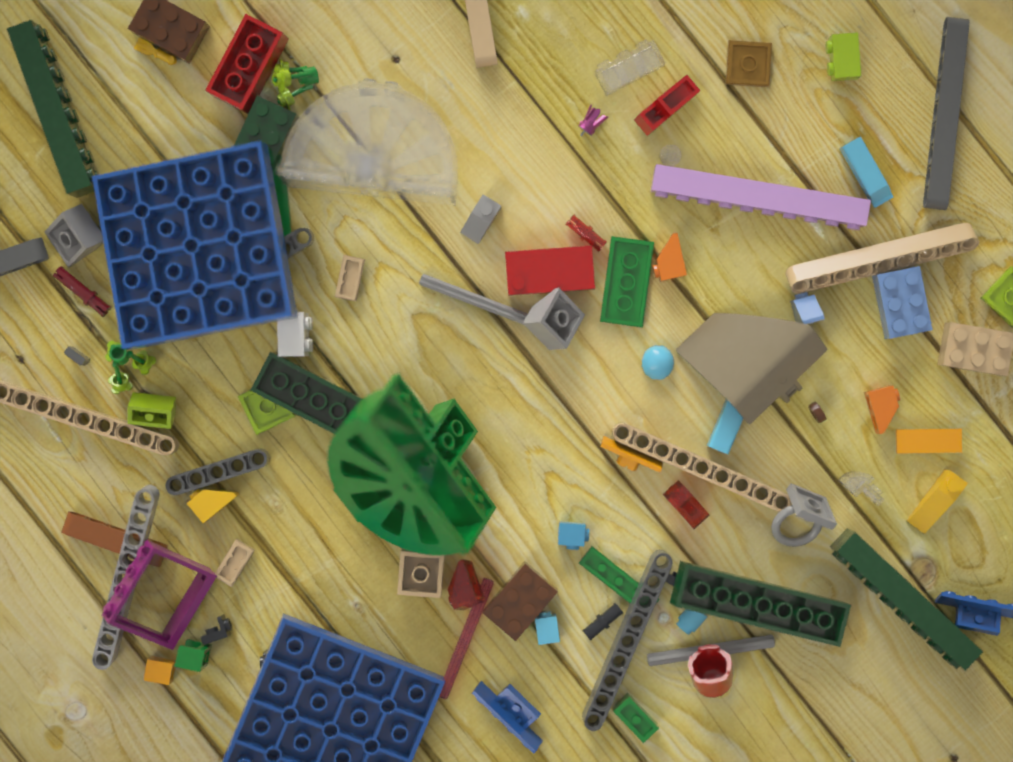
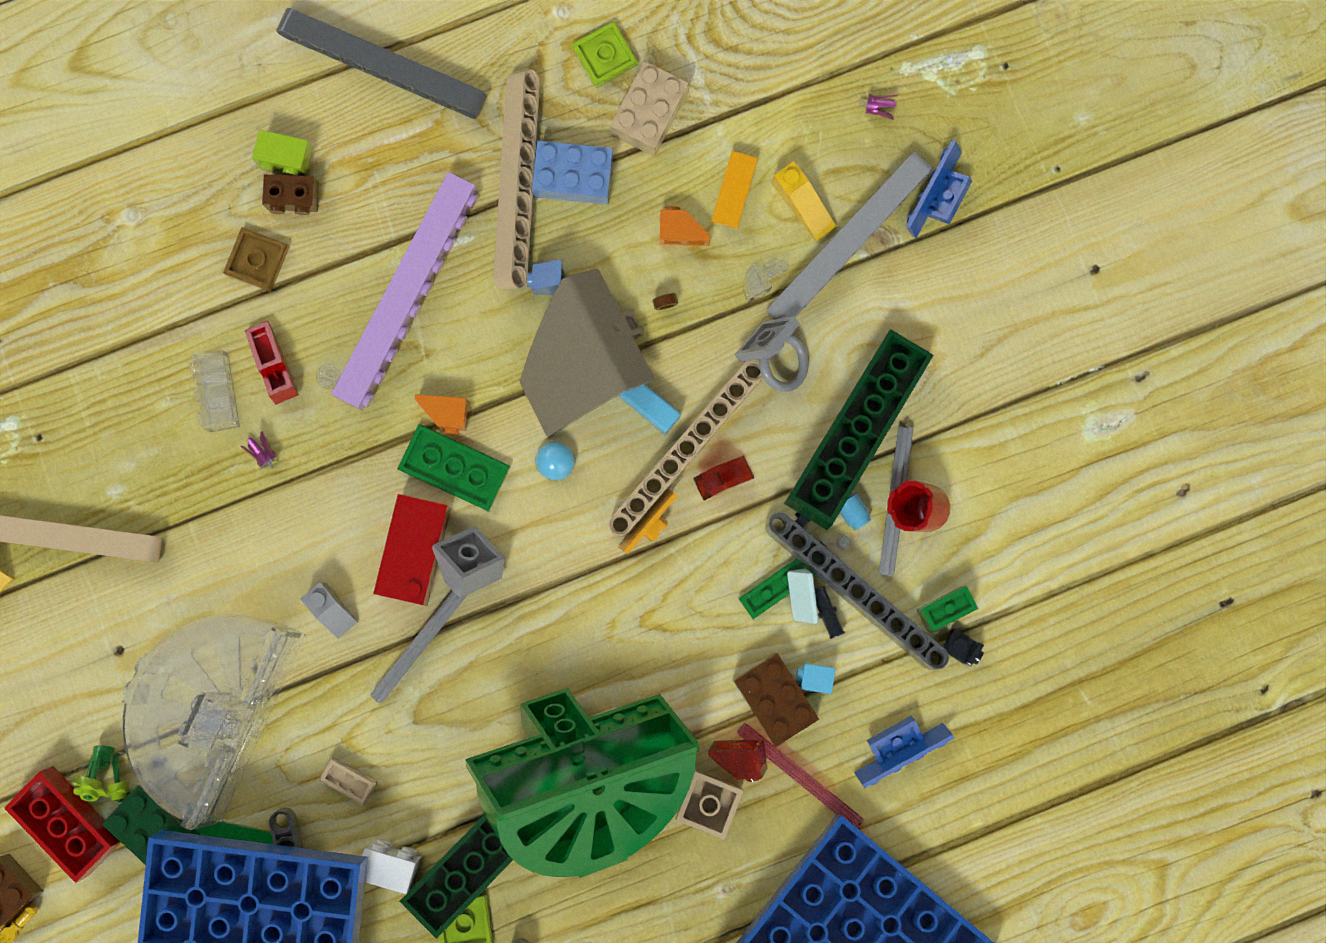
camera: 80 degrees left, 5 degrees down
(572, 534) = (719, 616): dark azure brick -> none
(586, 233) = (383, 496): clear red pin -> none
(607, 740) = (963, 648): none -> black bracket
(609, 598) = (802, 596): none -> light aqua slope
(812, 74) = (290, 194): none -> reddish brown brick
(866, 172) = (416, 167): medium azure piece -> none
(909, 602) = (899, 268): dark green brick -> none
(918, 549) = (851, 237): none -> light grey beam

